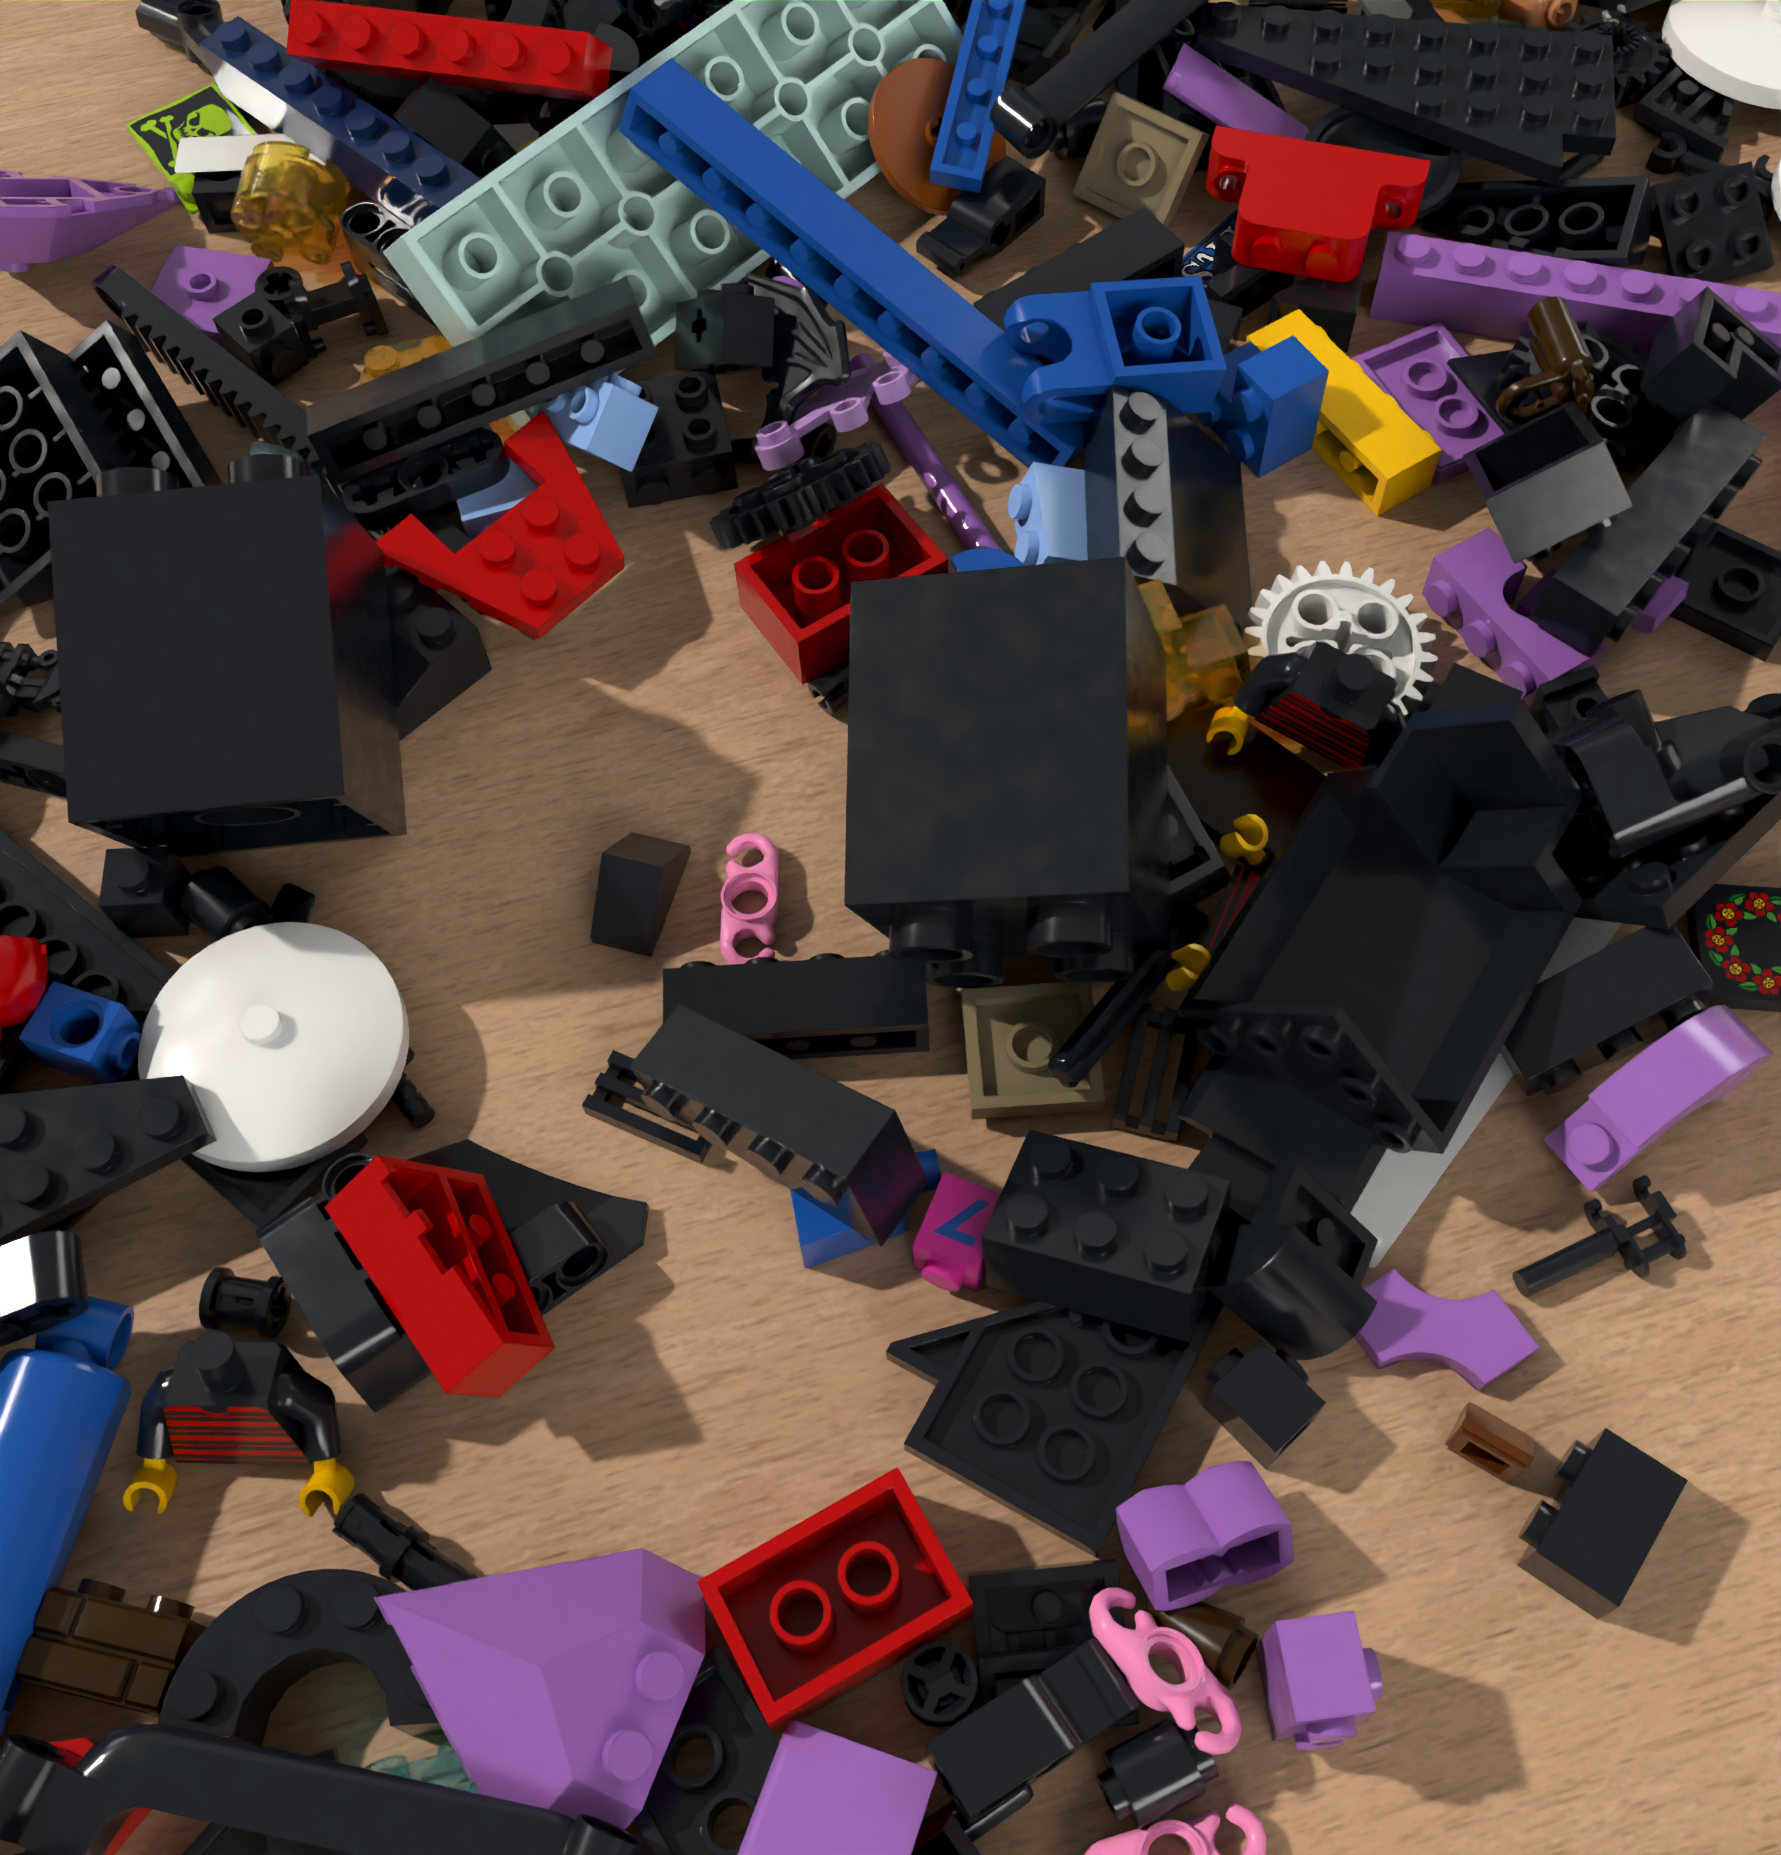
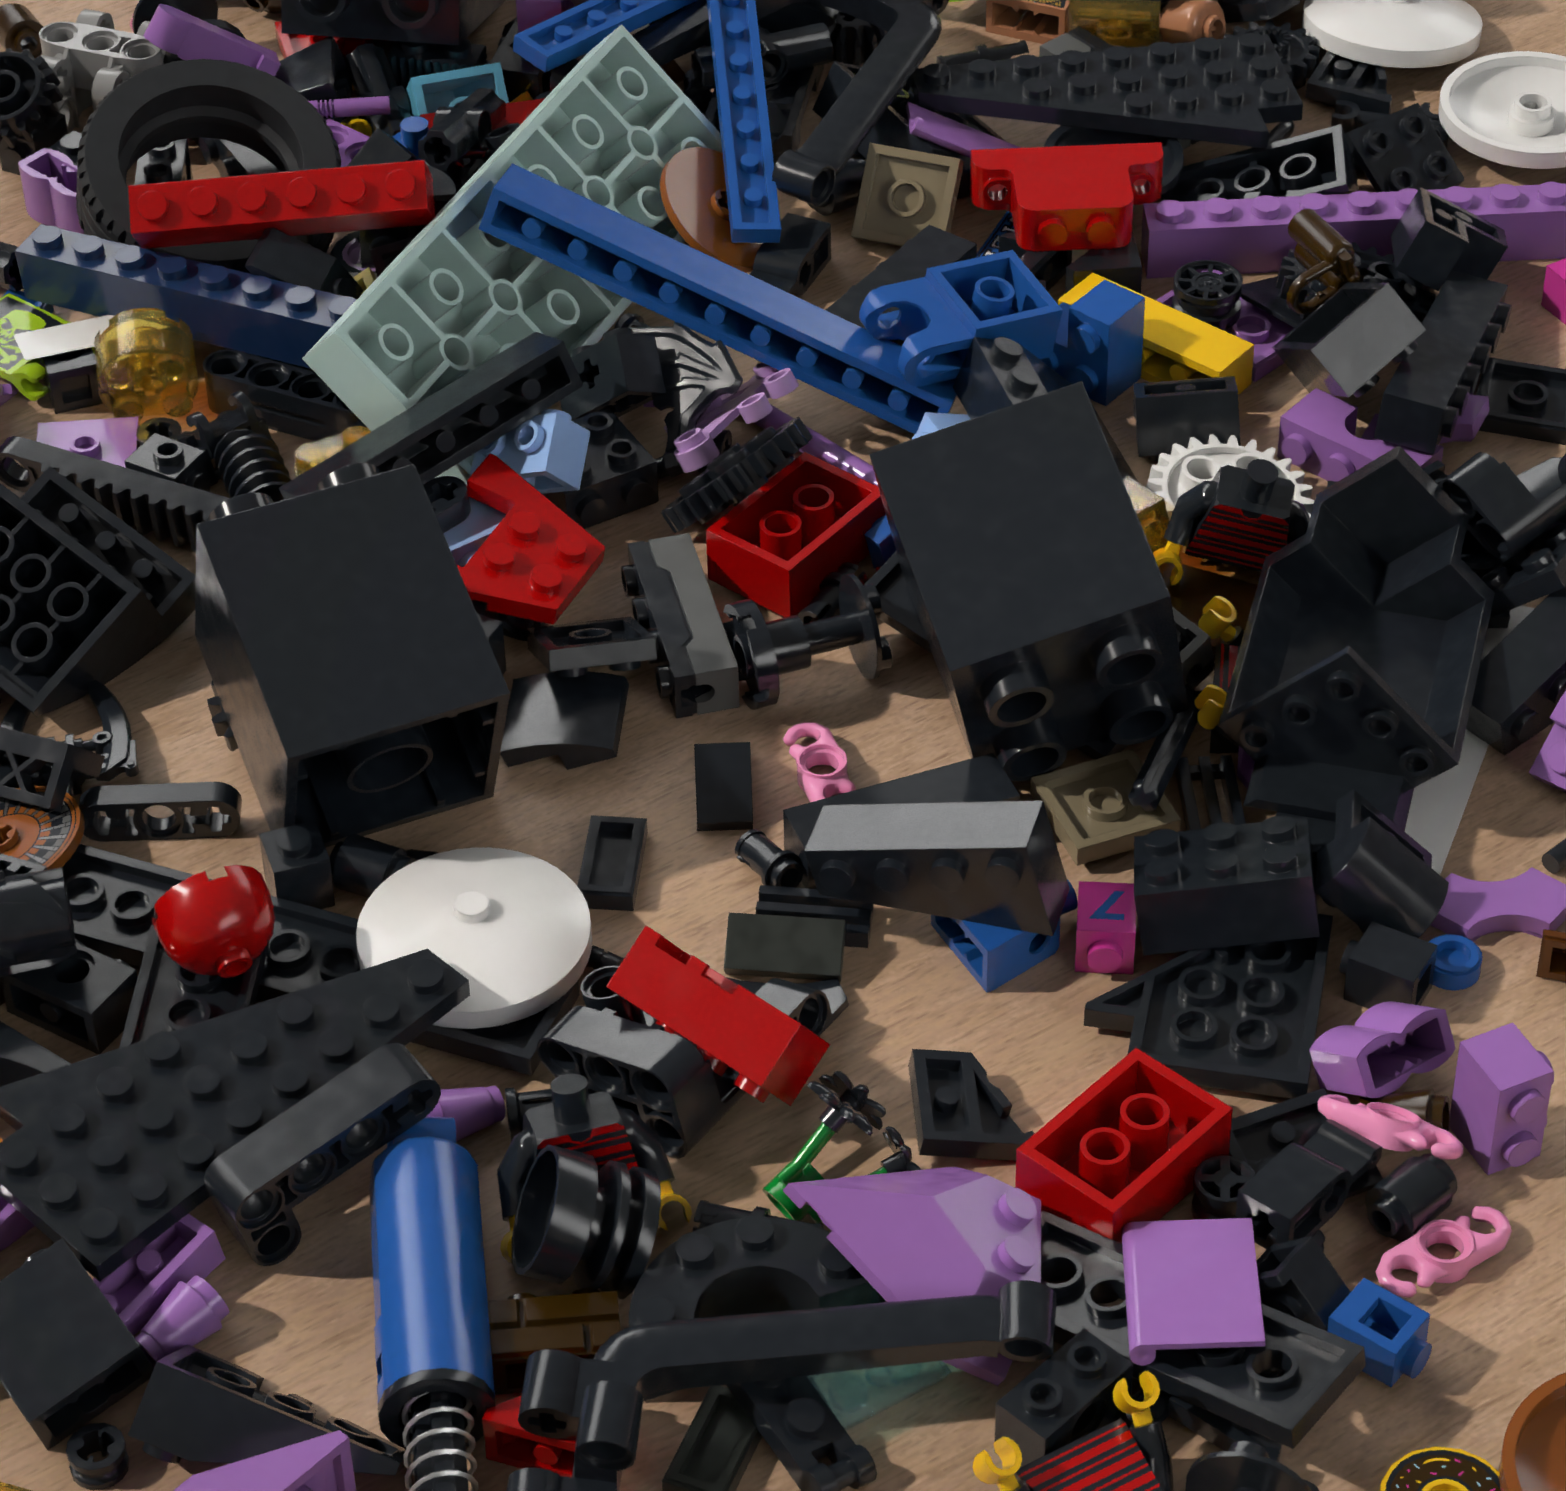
camera: 20 degrees left, 20 degrees down
(67, 1019) = (310, 953): blue brick -> none
(159, 1275) = (471, 1108): none -> medium lavender cone
(186, 1523) = (585, 1221): none -> black wheel
(333, 355) = (250, 464): none -> black piece
(471, 1508) = (845, 1106): none -> black plant
(480, 966) = (612, 862): none -> black tile
(511, 758) = (564, 718): none -> black slope
(567, 675) = (580, 645): none -> black plate
(602, 1147) = (784, 946): none -> pearl dark grey tile
(634, 1012) = (769, 860): none -> black pin
(678, 669) = (679, 610): none -> piece
(696, 1450) = (960, 1109): none -> black wing
(758, 736) = (786, 644): none -> black piece
(1329, 523) = (1184, 409): none -> black brick
(1352, 1397) = (1456, 962): none -> blue tile
(1417, 369) = (1207, 294): none -> black wheel

